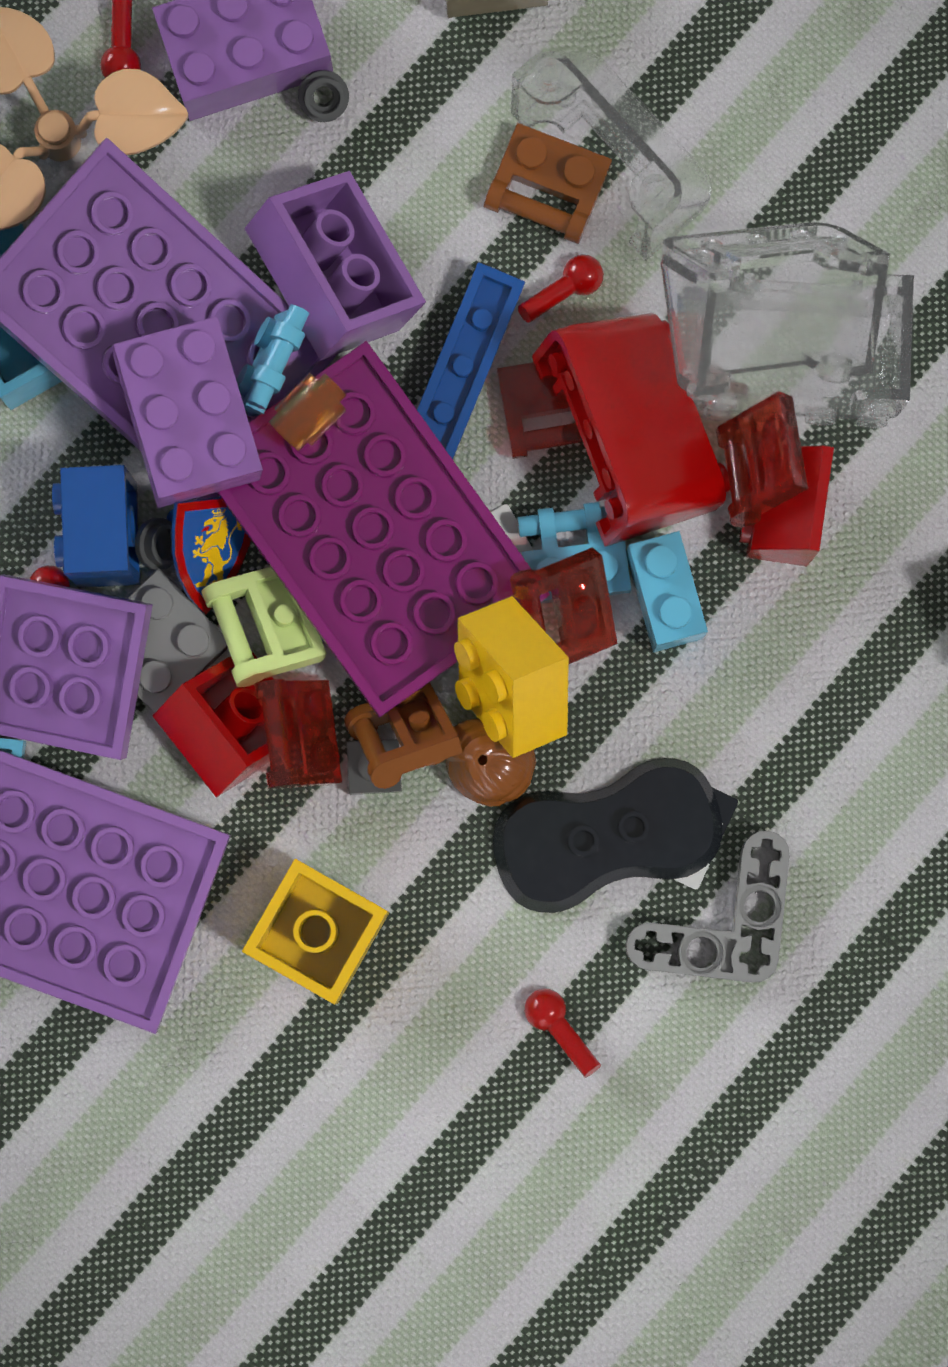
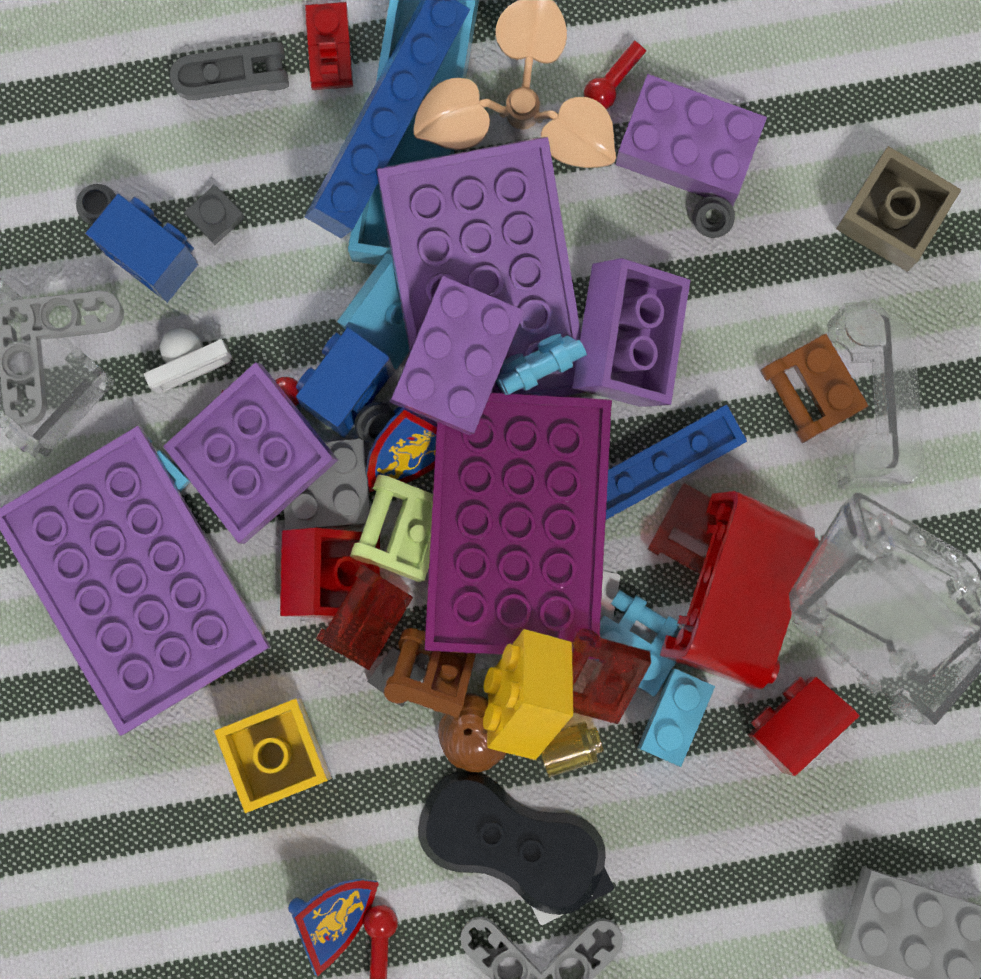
camera: 40 degrees right, 0 degrees up
(77, 434) = (378, 313): none -> medium azure plate
(308, 411) = (536, 417): clear orange brick -> none
(497, 1040) = (332, 919): none -> shield
(580, 276) = (786, 465): red bar -> none
(593, 700) = (572, 749): none -> clear yellow brick
(772, 454) = (815, 687): clear red plate -> none

